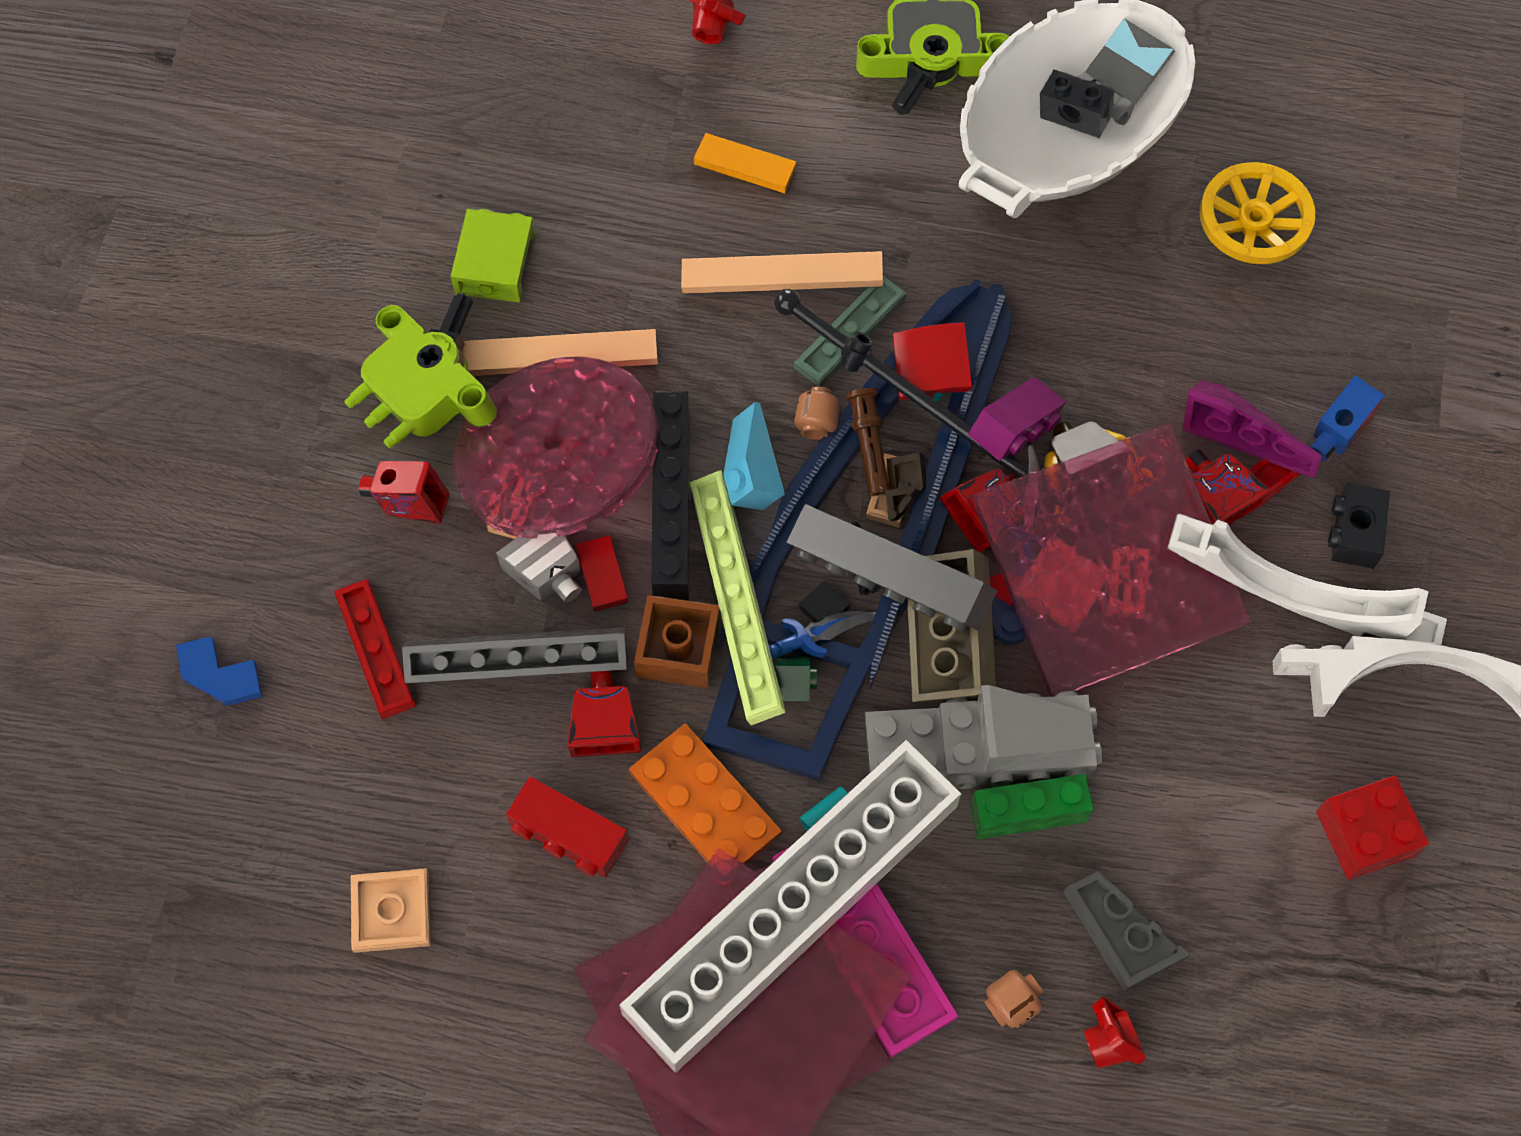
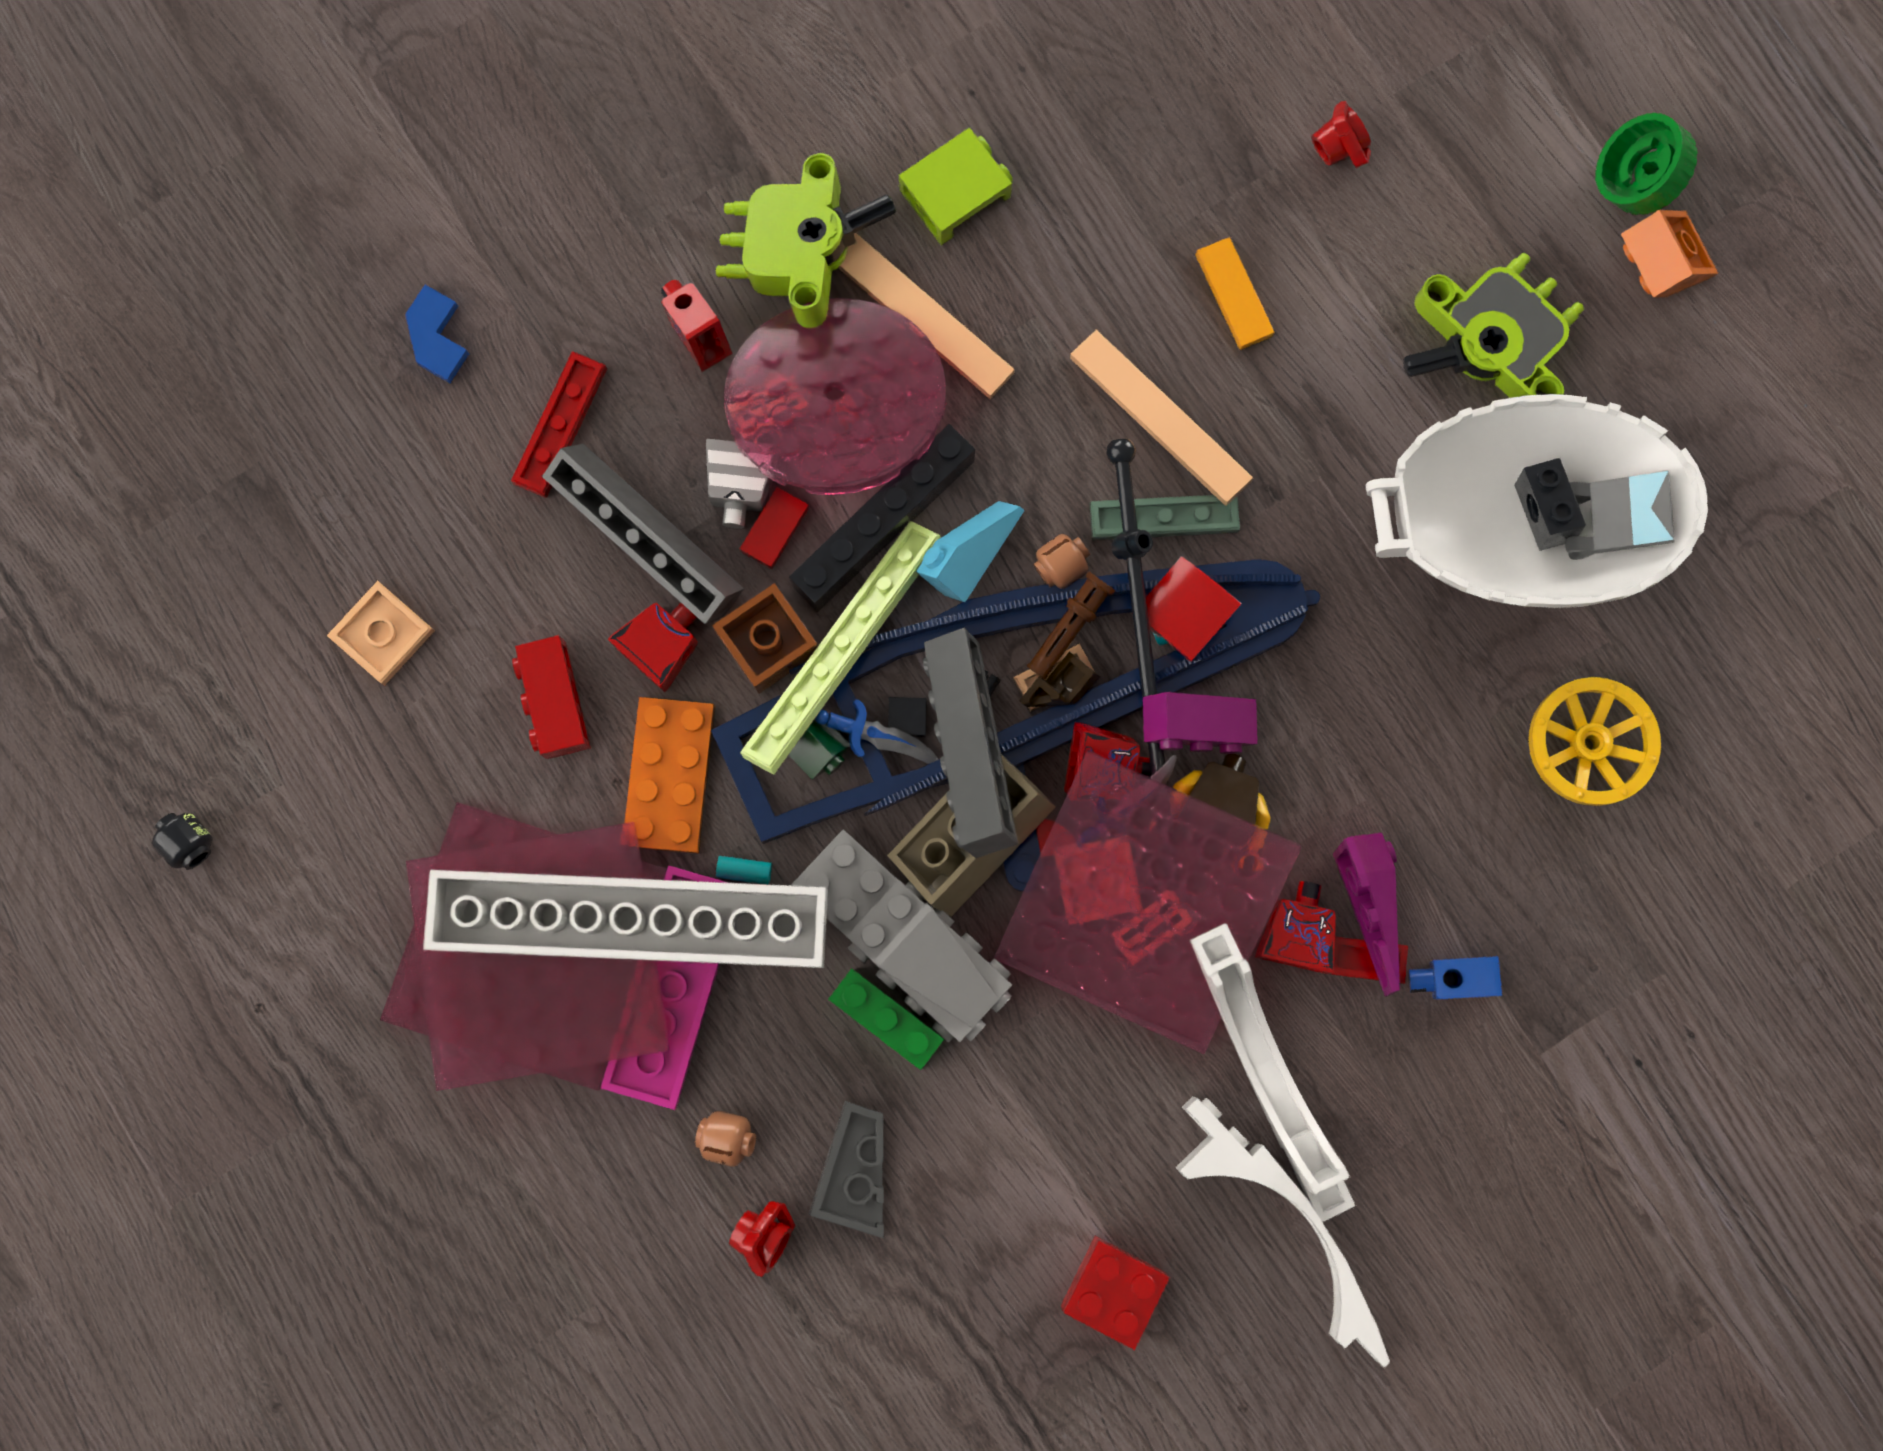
camera: 45 degrees right, 15 degrees up
(1369, 509) = (1398, 1066): black brick -> none

